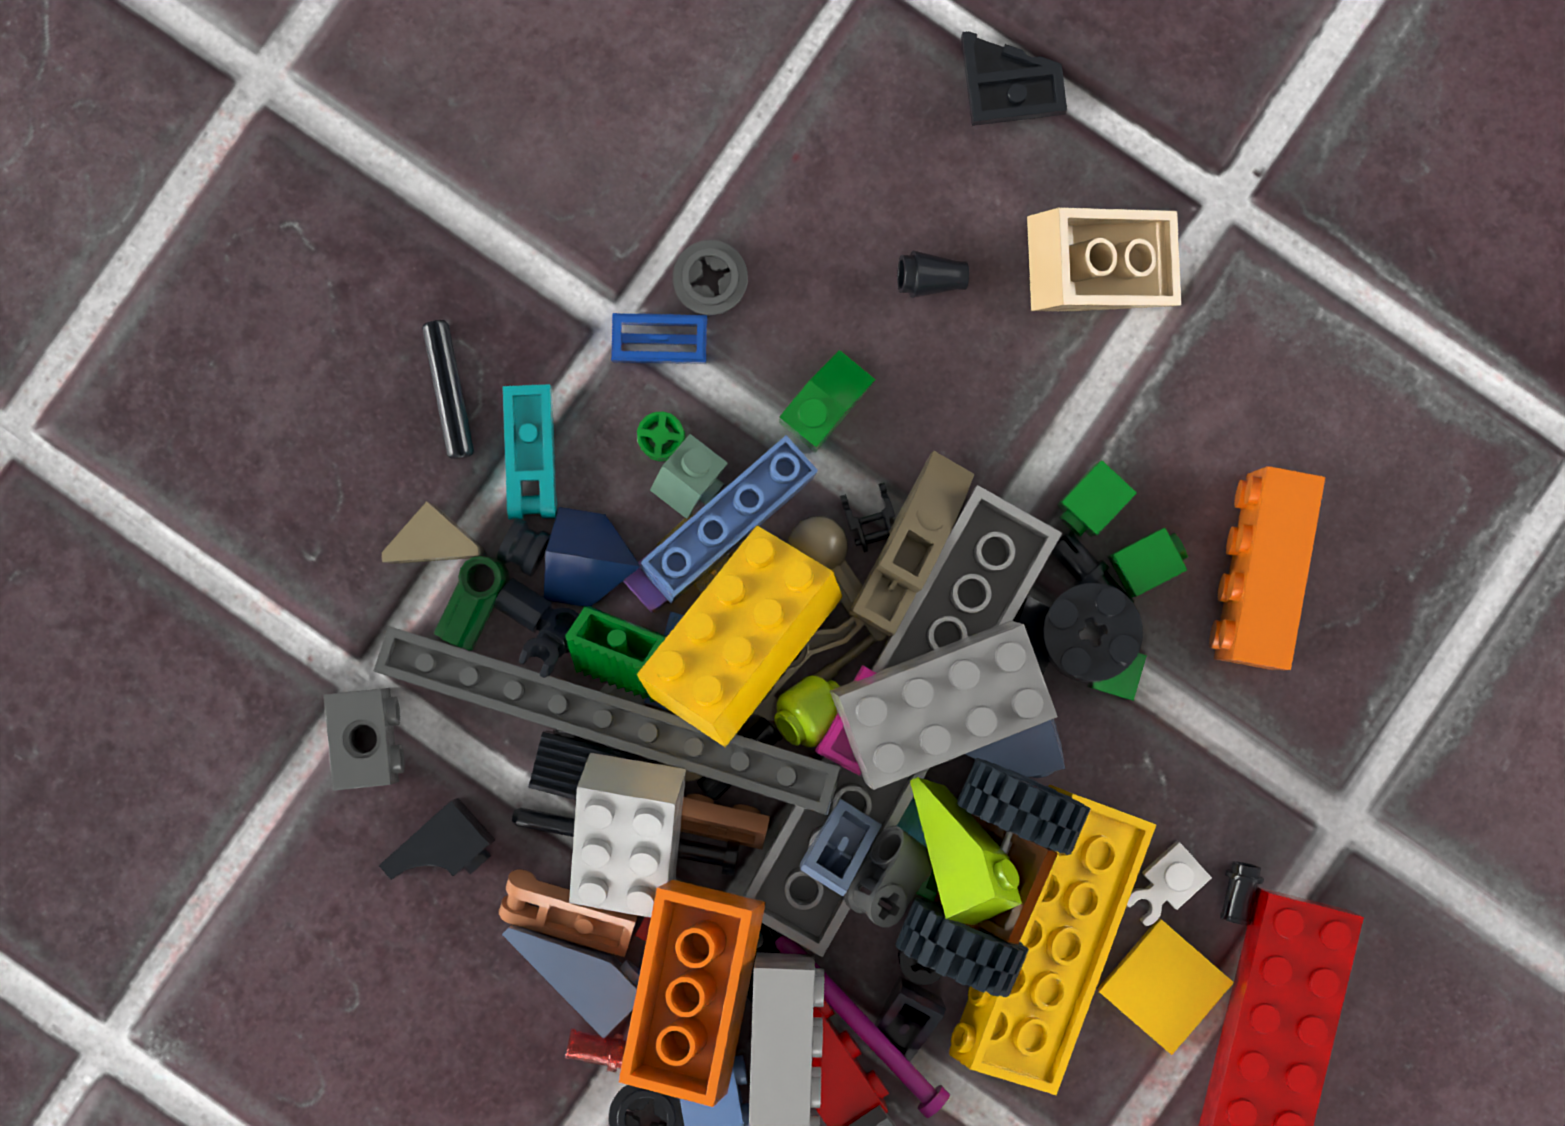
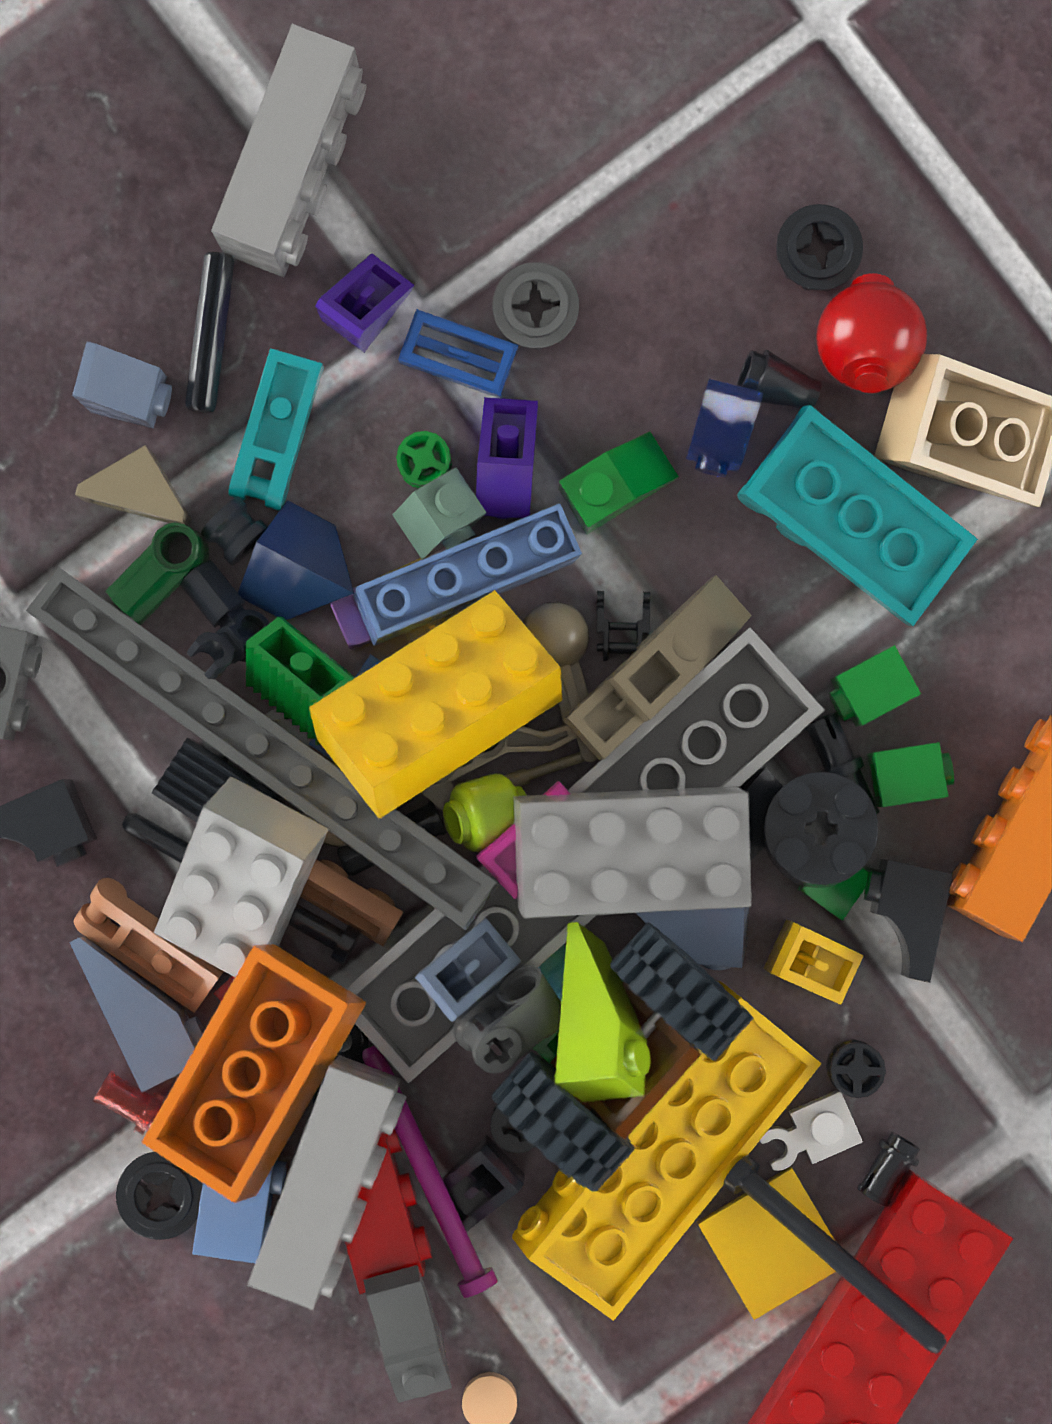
camera: 15 degrees right, 0 degrees up
(390, 459) = (121, 386): none -> sand blue slope
(464, 218) = (289, 151): none -> light grey brick
(567, 321) = (364, 301): none -> dark purple slope
(728, 410) = (506, 457): none -> dark purple slope
(899, 327) = (723, 427): none -> clear blue slope
(933, 131) = (833, 227): none -> black gear
(996, 209) = (871, 335): none -> red brick
(1010, 84) = (933, 203): black wing -> none
(1034, 362) = (857, 515): none -> teal hinge
(1120, 743) = (813, 962): none -> yellow slope
(1125, 941) = (745, 1177): none -> black bar
(1189, 669) = (915, 907): none -> black arch
(1194, 818) = (865, 1078): none -> black wheel

